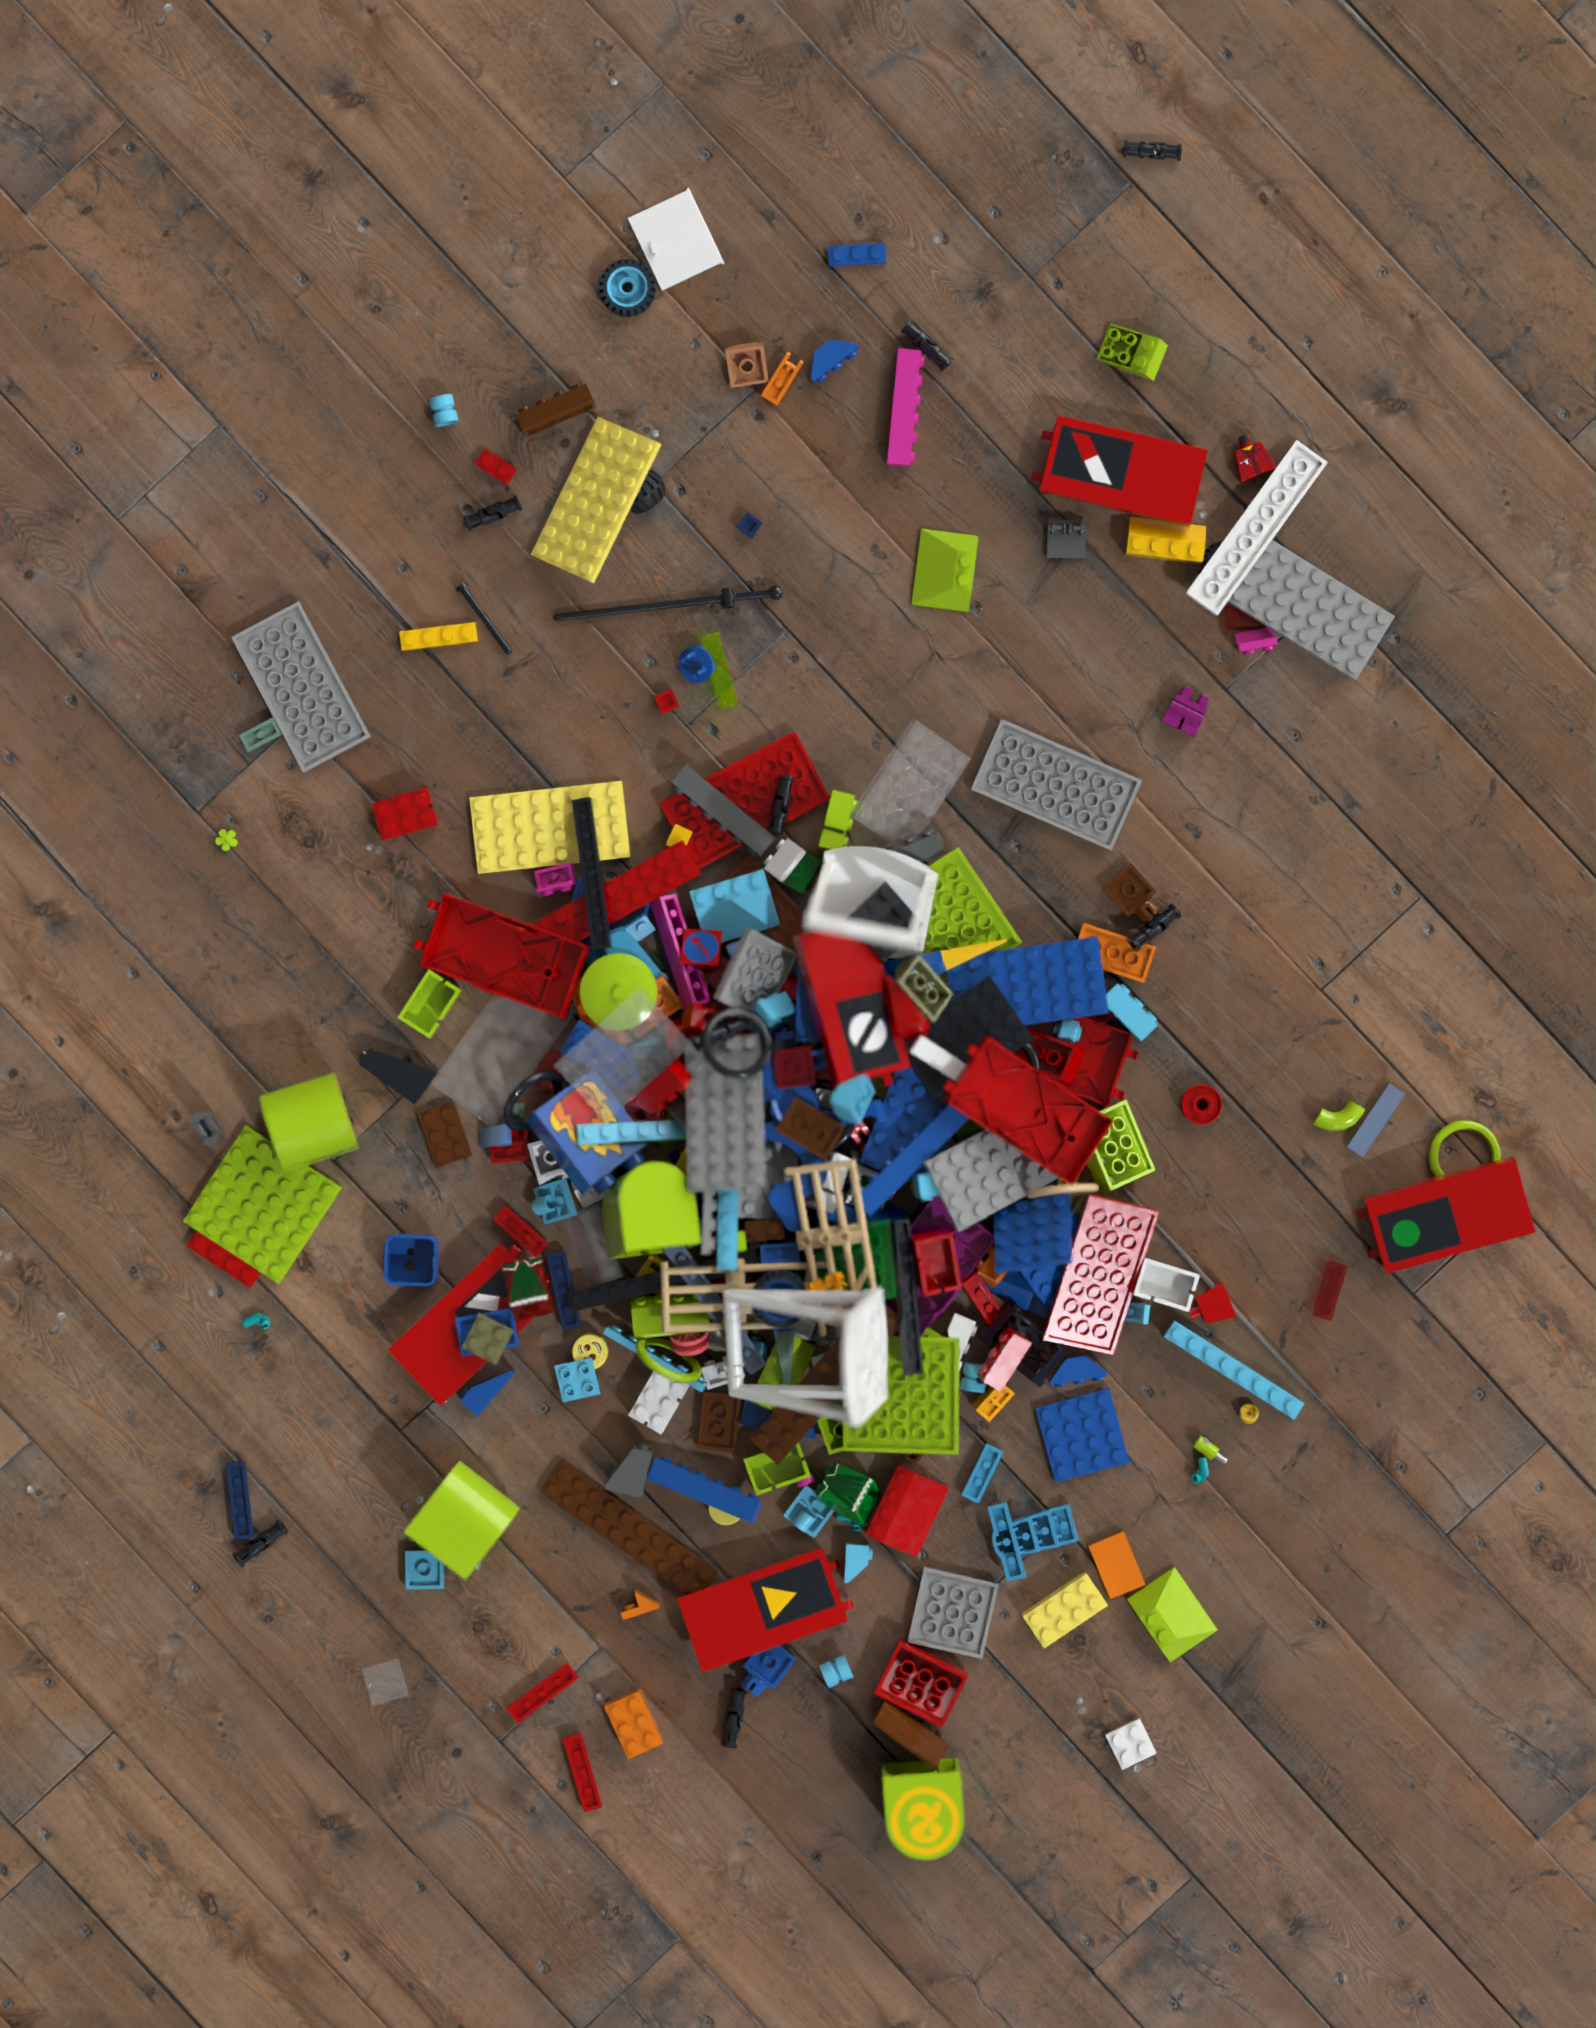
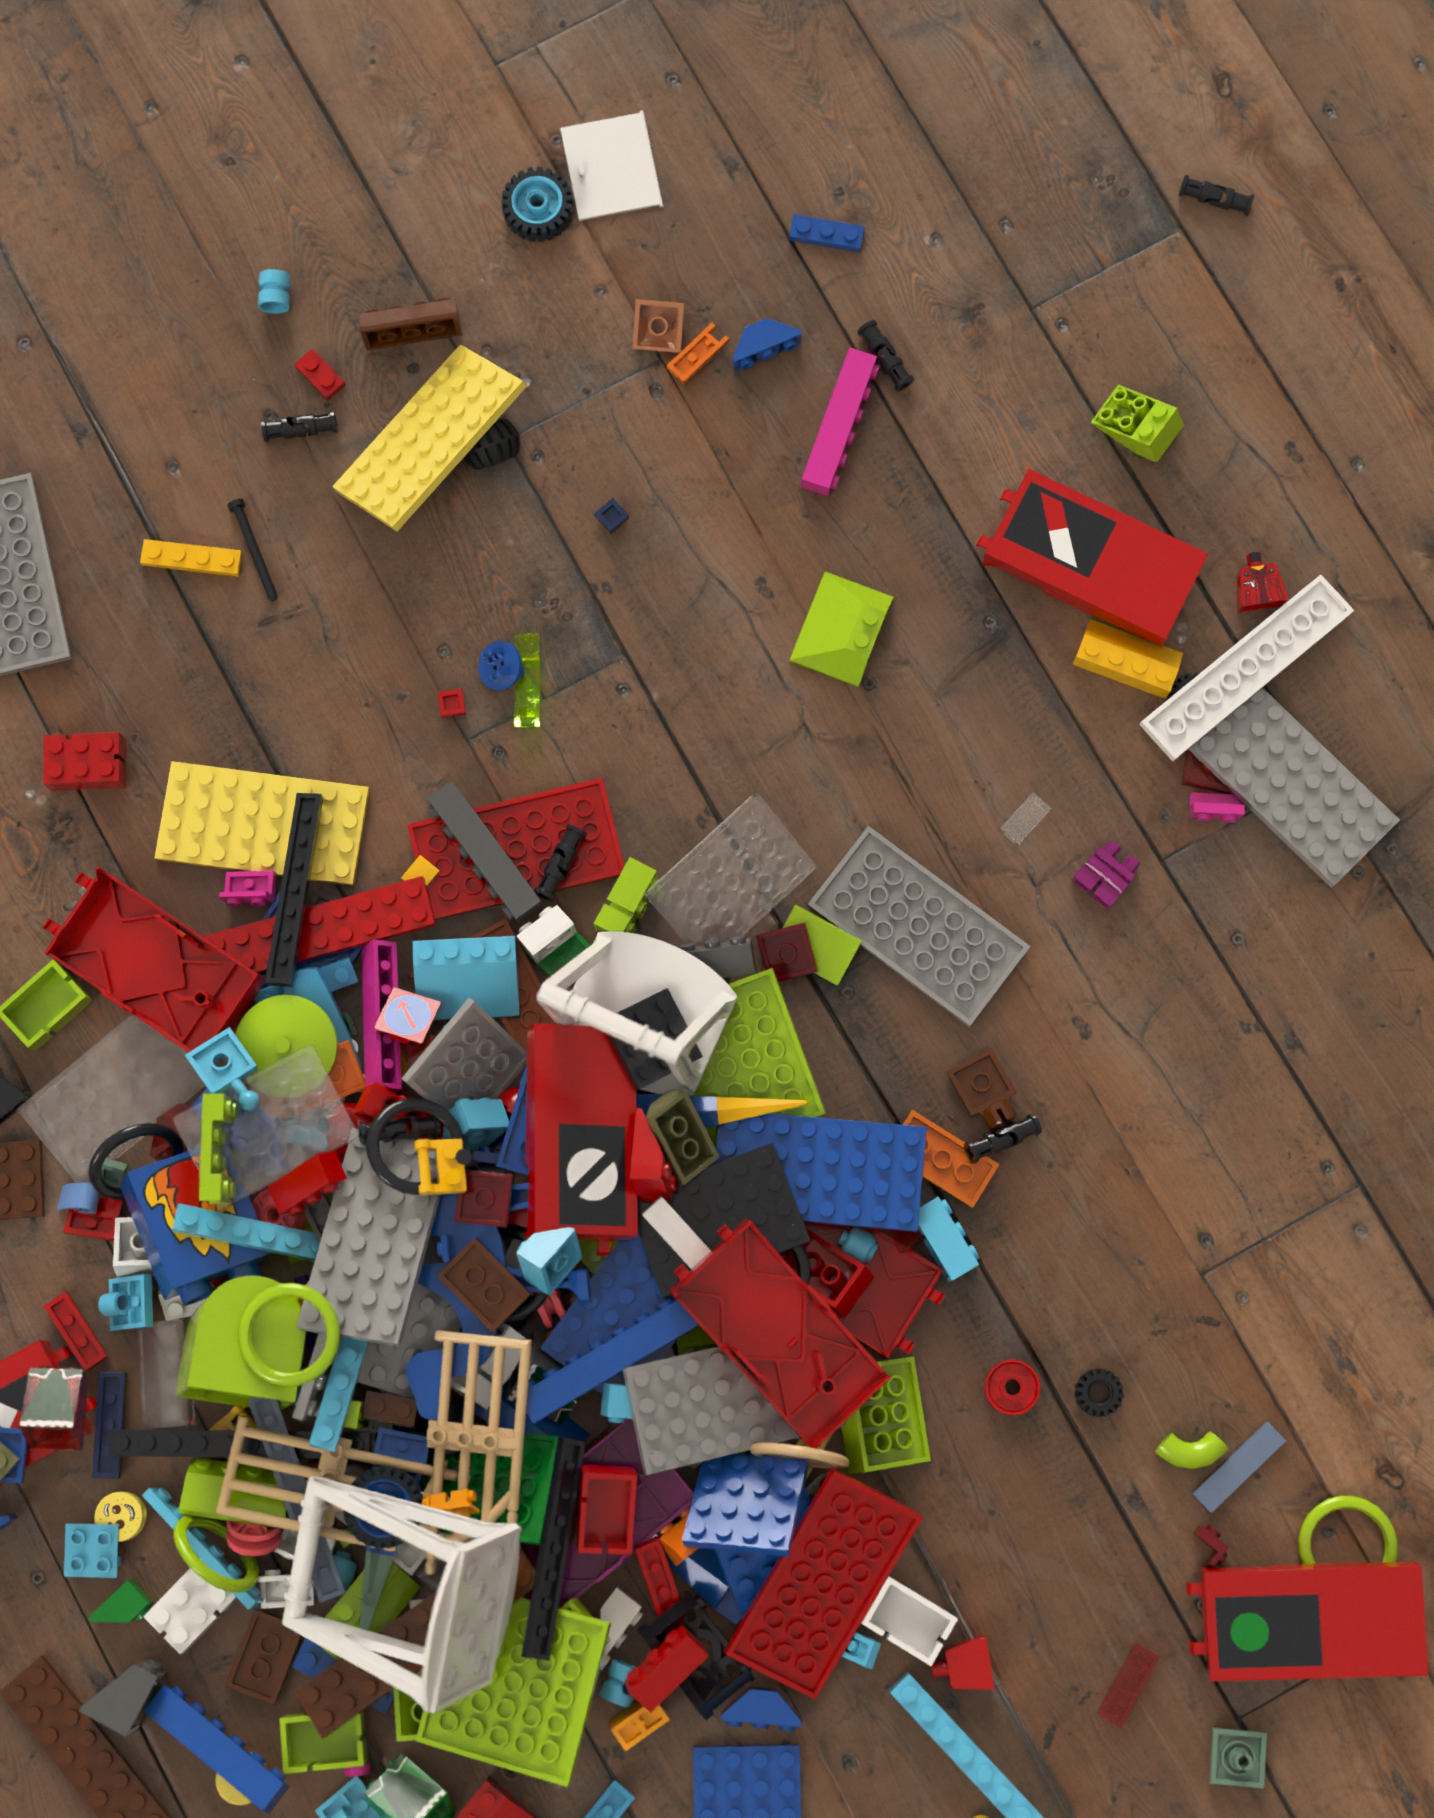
camera: 20 degrees right, 10 degrees down
(580, 1029) = (222, 1078): none -> medium azure plate
(603, 1107) = (216, 1112): none -> lime piece
(611, 1411) = (125, 1605): none -> green slope
(708, 1176) = (332, 1328): none -> lime wedge
(727, 598) = (560, 596): black bar -> none
(766, 1055) = (450, 1173): none -> yellow plate
(964, 829) = (788, 952): none -> dark red tile
(984, 818) = (830, 944): none -> lime tile
(1066, 538) = (1003, 626): dark grey hinge -> none
(1116, 683) = (1025, 819): none -> clear tile
(1276, 1092) = (1114, 1387): none -> black tyre
(1366, 1174) = (1211, 1539): none -> dark red bracket
(1417, 1320) = (1237, 1757): none -> sand green plate

